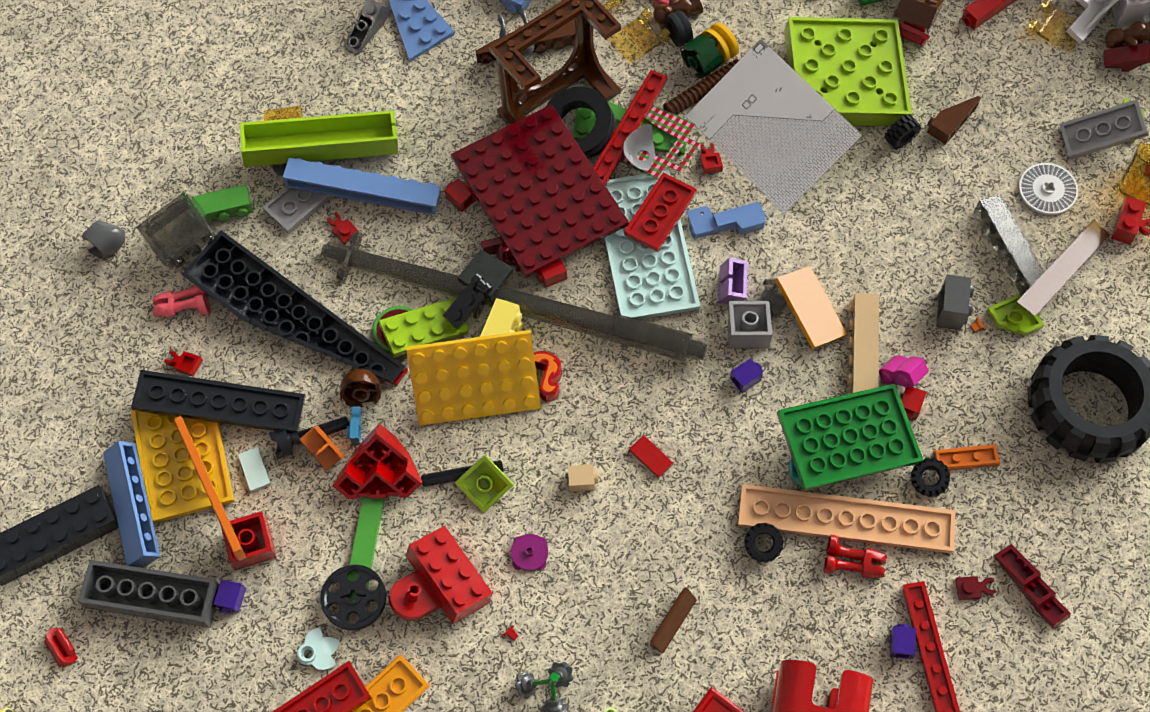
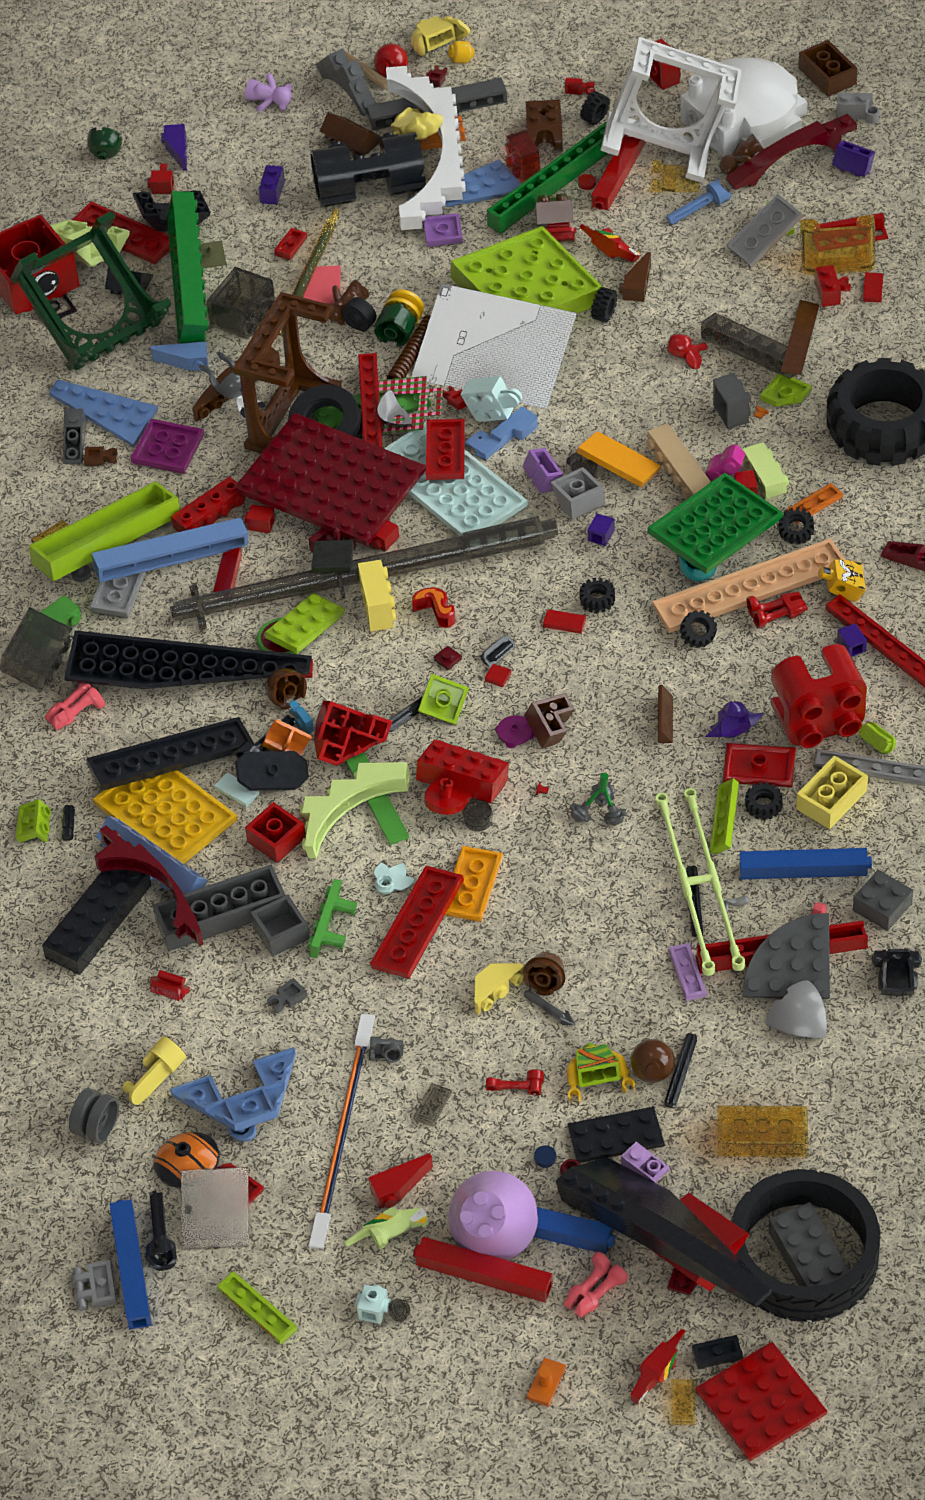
camera: 30 degrees left, 15 degrees down
(71, 402) = (33, 821): none -> lime bracket
(98, 494) = (124, 856): none -> dark red slope
(99, 419) = (68, 822): none -> black axle
(184, 364) = (112, 744): red plate -> none
(184, 646) = (280, 925): none -> dark grey piece
(210, 489) = (216, 805): orange tile -> none
(221, 667) = (333, 903): none -> bright green plate
(229, 596) = (289, 877): dark purple brick -> none
(290, 470) = (271, 770): none -> black shield
(330, 537) = (368, 782): none -> yellowish green arch
(342, 229) = (174, 592): red plate -> none
(347, 606) = (394, 834): black wedge -> none
(372, 54) = (97, 455): none -> reddish brown plate
(398, 235) = (228, 570): none -> red slope
(422, 159) = (208, 507): none -> red brick
(434, 630) = (472, 815): none -> clear smoke wheel
(435, 76) = (167, 446): none -> magenta plate
(468, 301) = (333, 580): black plate -> none
(474, 377) = (380, 628): yellow plate -> none
(523, 435) = (447, 657): none -> dark red plate
(554, 481) = (497, 675): none -> red tile
(558, 560) = (547, 718): none -> reddish brown brick
(571, 454) = (497, 650): none -> black piece
(582, 478) = (519, 659): tan brick -> none
(638, 38) = (326, 341): clear yellow flag -> none
(703, 436) = (597, 587): none -> black tyre
(730, 669) = (733, 720): none -> dark purple hair
(731, 180) = (490, 399): none -> light aqua brick
(938, 568) = (844, 578): none -> yellow torso
(940, 396) = (766, 471): none -> yellowish green brick
(946, 214) = (680, 347): none -> red piece
(951, 69) = (611, 244): none -> red animal
(970, 588) = (878, 584): dark red plate -> none
(1051, 202) = (736, 295): piece -> none
(1082, 63) = (714, 193): none -> medium blue piece

